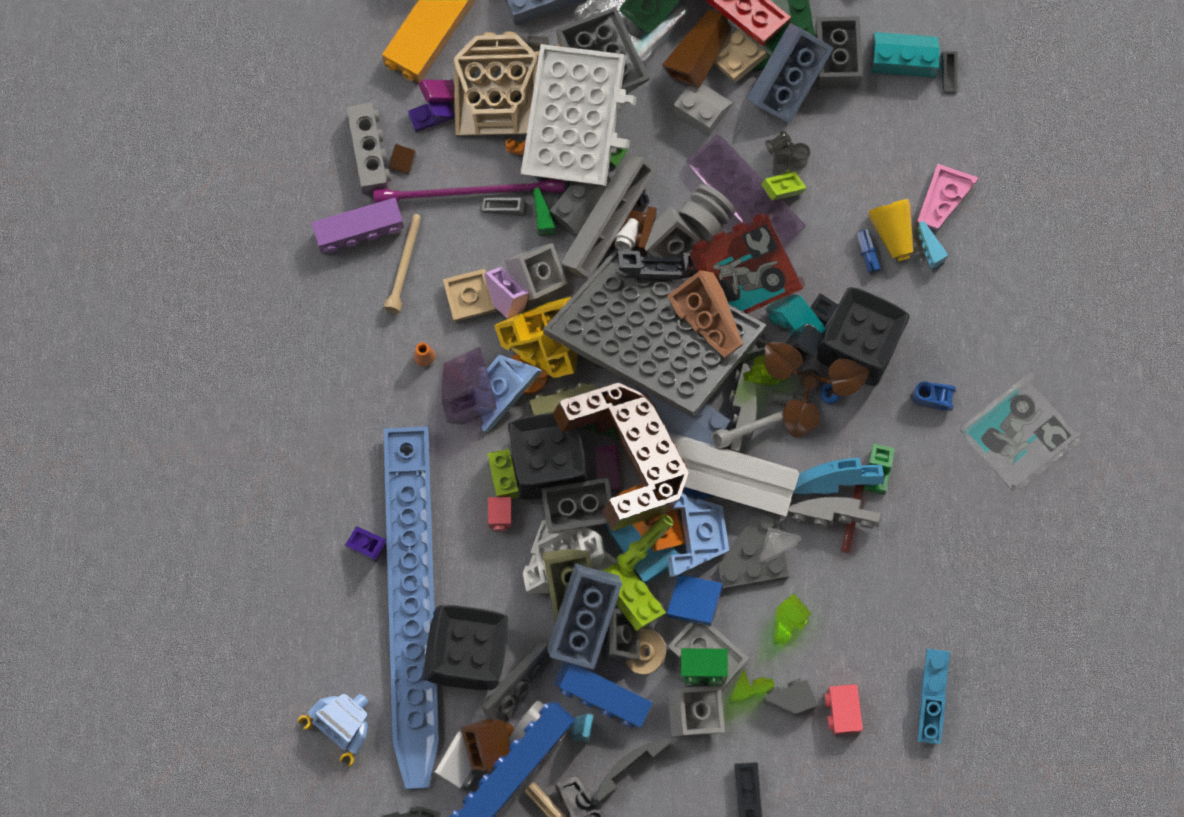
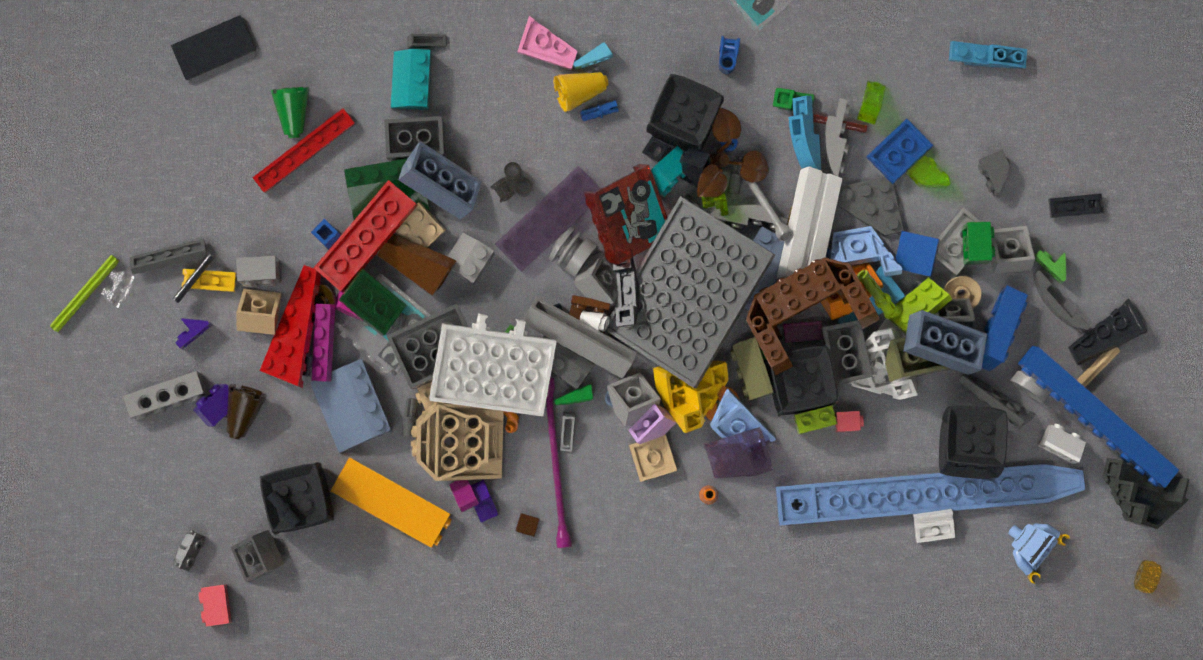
camera: 90 degrees left, 10 degrees up
(358, 225) = (593, 559): medium lavender brick -> none
(365, 115) = (490, 568): light grey brick -> none
(366, 543) = (880, 534): dark purple slope -> none
(372, 606) = (934, 526): none -> white plate
(393, 302) = (662, 523): tan piece -> none
(486, 742) = (1050, 420): reddish brown torso -> none
(582, 728) = (1028, 340): medium azure slope -> none
(672, 767) = (1055, 269): none -> bright green slope
(707, 310) = (670, 247): nougat wedge -> none
(744, 690) = (990, 211): clear neon green slope -> none
(777, 543) = (868, 185): clear slope -> none
(783, 186) = (544, 185): lime plate -> none
(818, 587) = (899, 151): none -> blue tile
(844, 709) = (1002, 127): coral brick -> none
(876, 556) = (871, 102): none -> clear neon green slope

